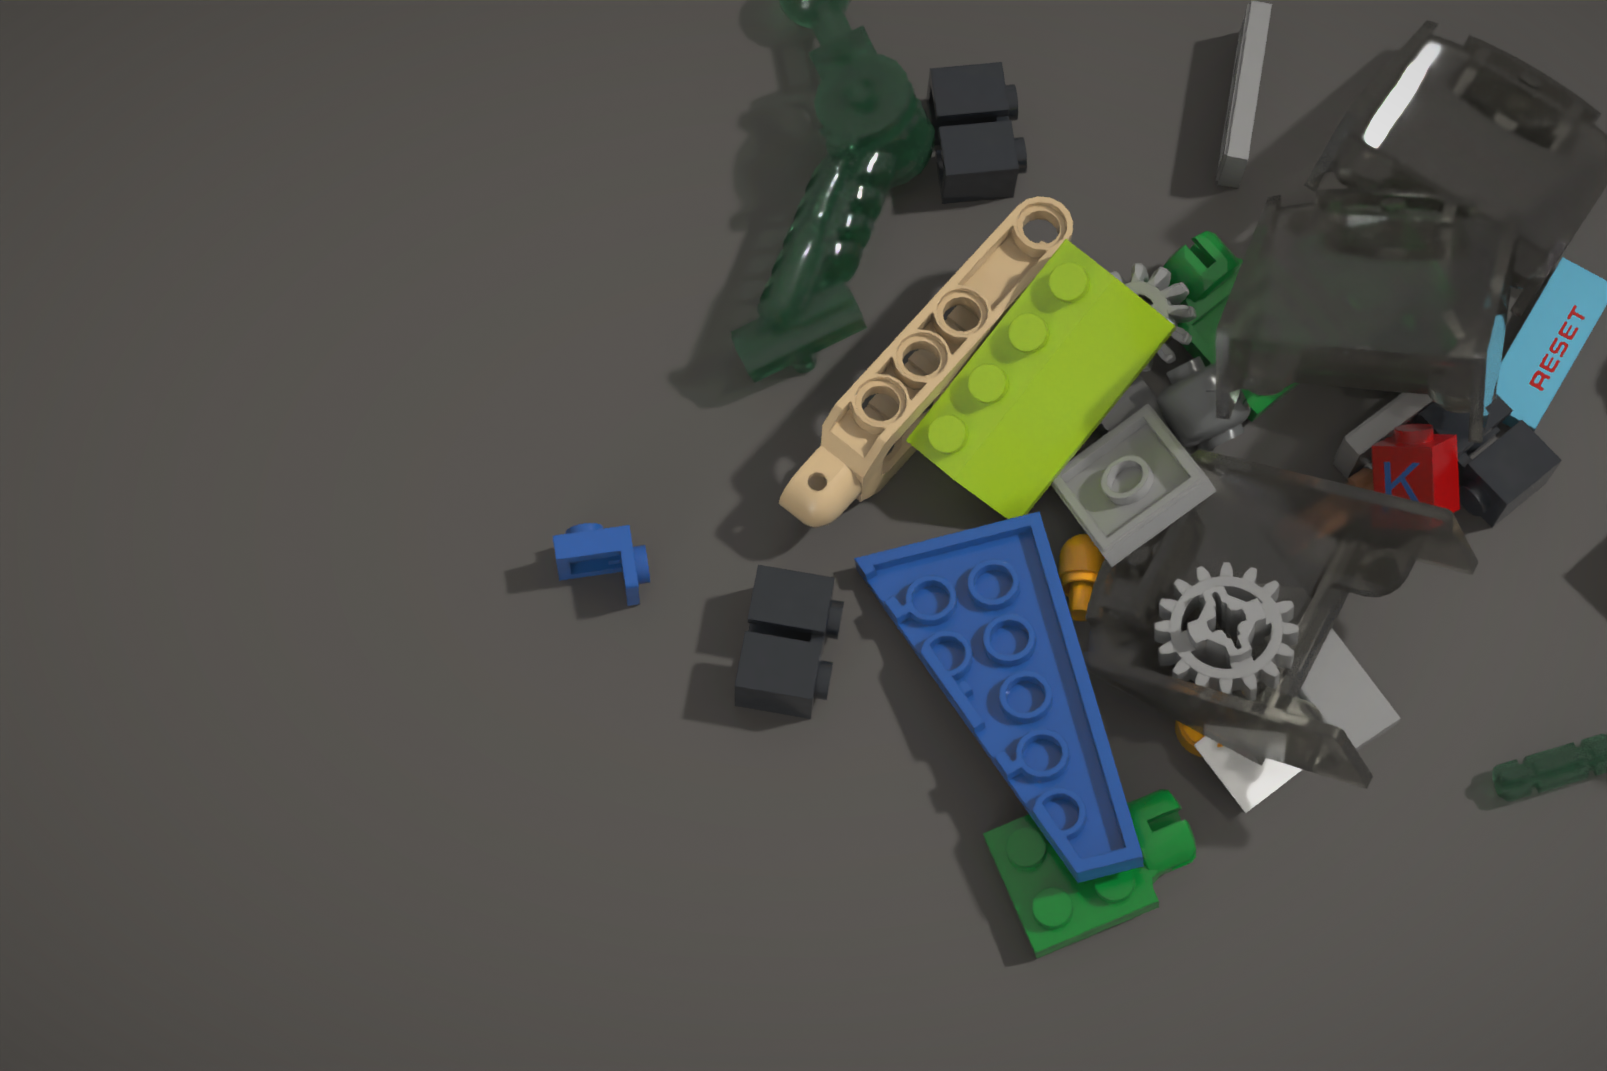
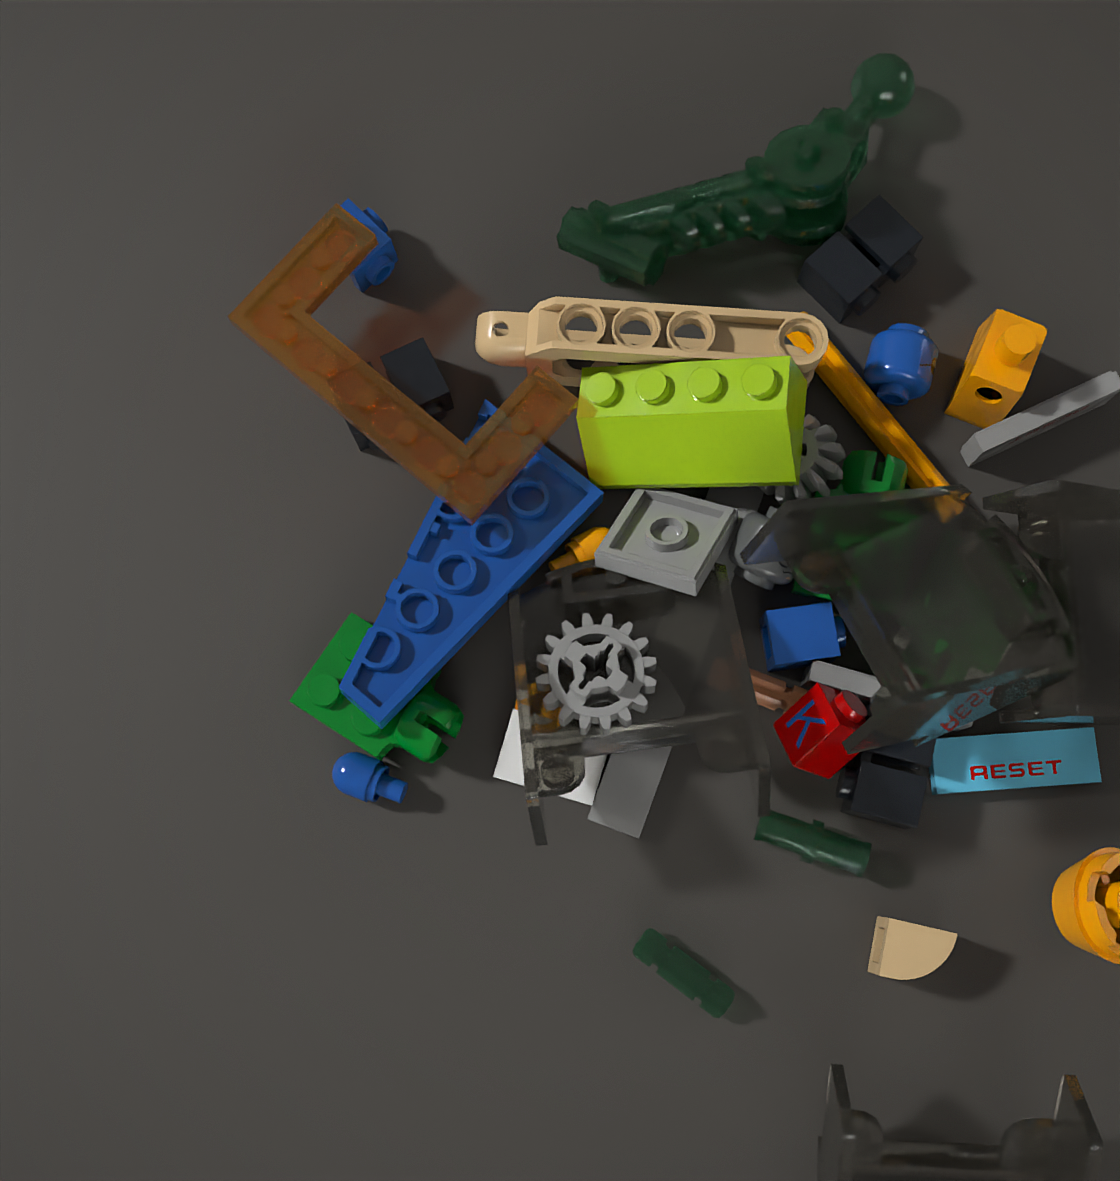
camera: 60 degrees right, 10 degrees up
(934, 621) = (460, 474): none -> clear orange plate
(1102, 170) = (901, 364): none -> blue head
(1139, 230) = (871, 413): none -> light orange axle
(1165, 933) = (366, 778): none -> blue cylinder
(1166, 86) = (998, 360): none -> light orange torso
(1308, 433) = (801, 635): none -> blue brick
(1508, 566) = (813, 842): none -> clear green pin

